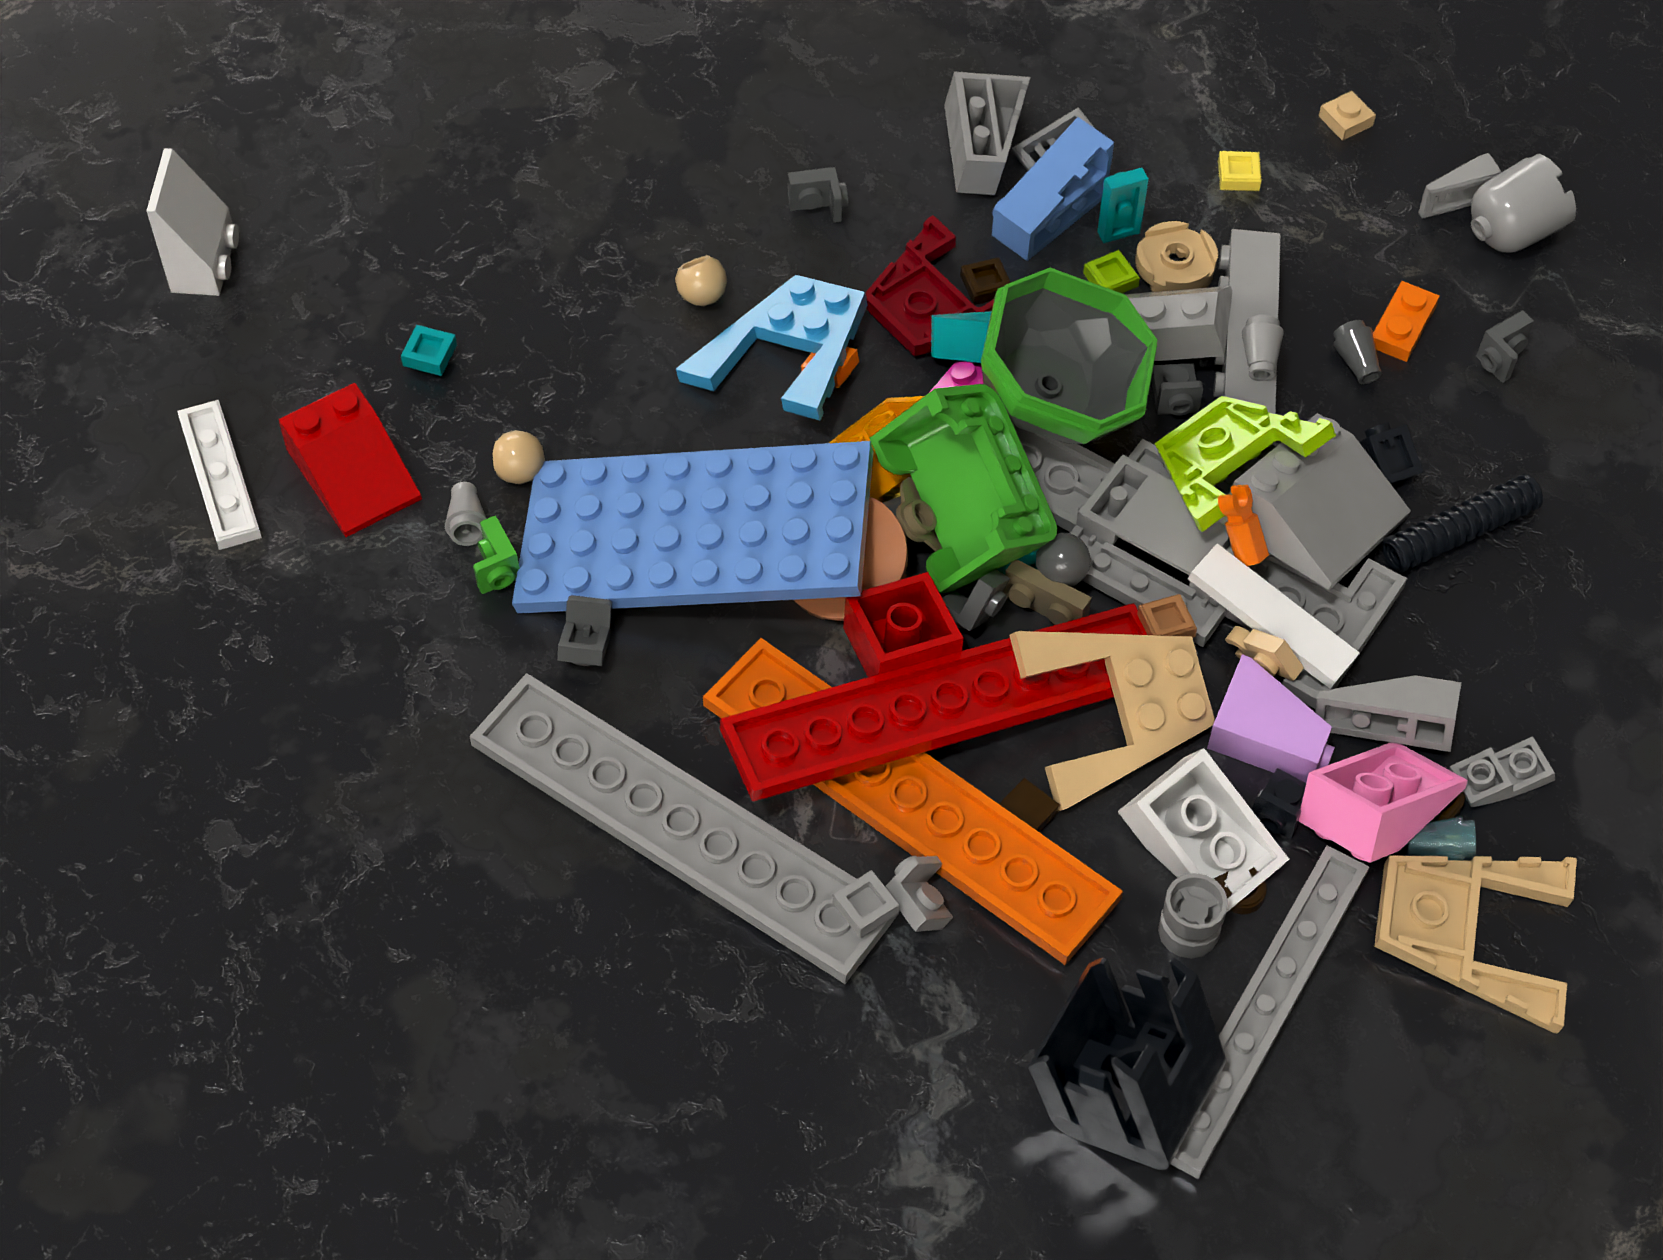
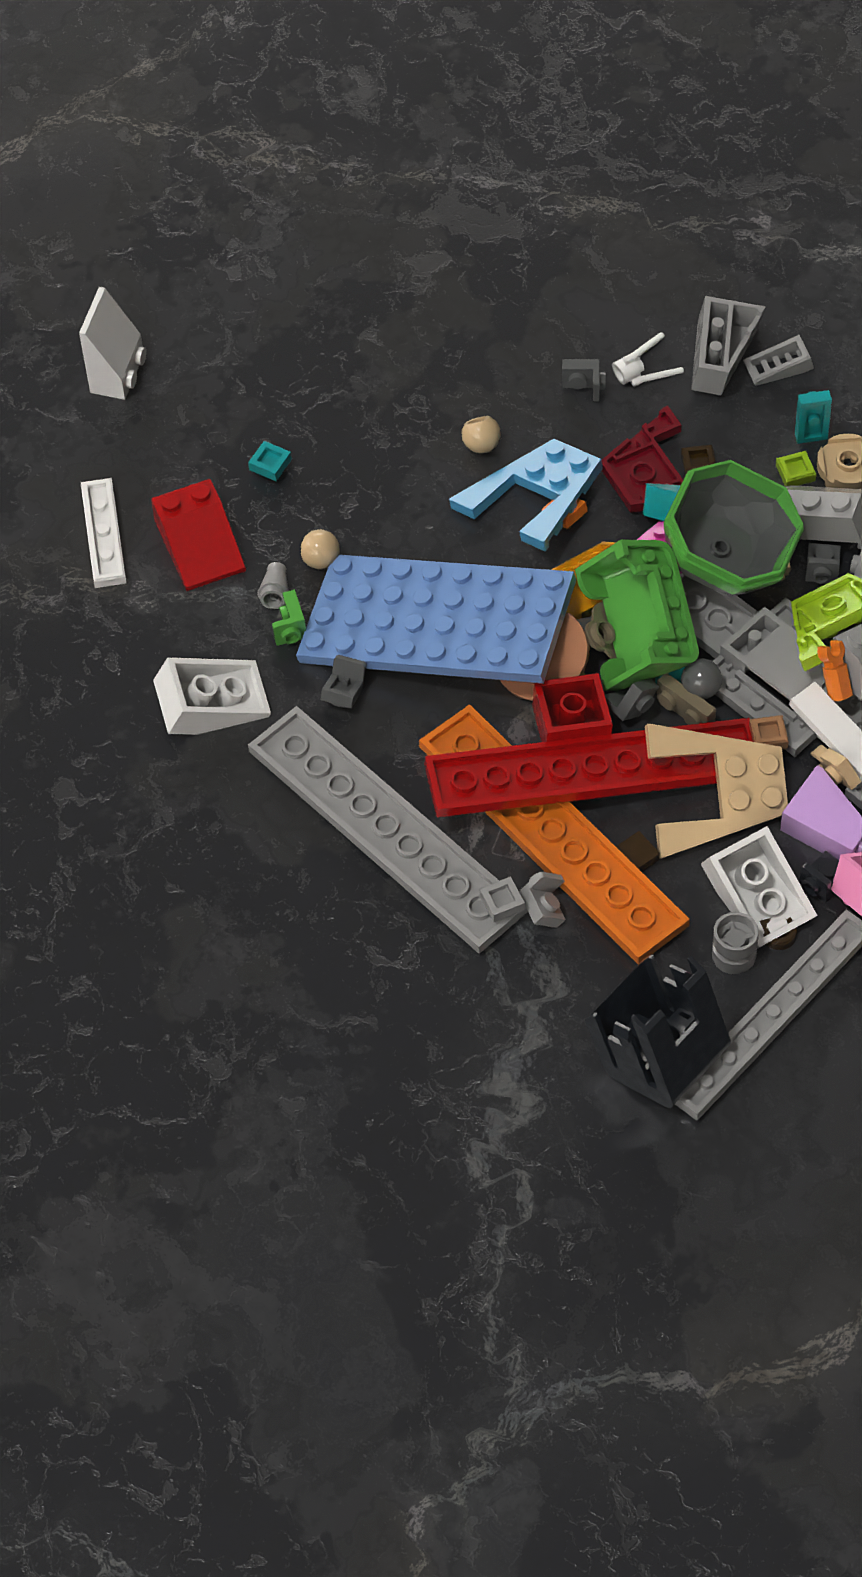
camera: 15 degrees right, 0 degrees up
(403, 674) = (209, 694): none -> white slope
(874, 172) = (630, 367): none -> white plant
(1055, 190) = (763, 399): medium blue wedge -> none

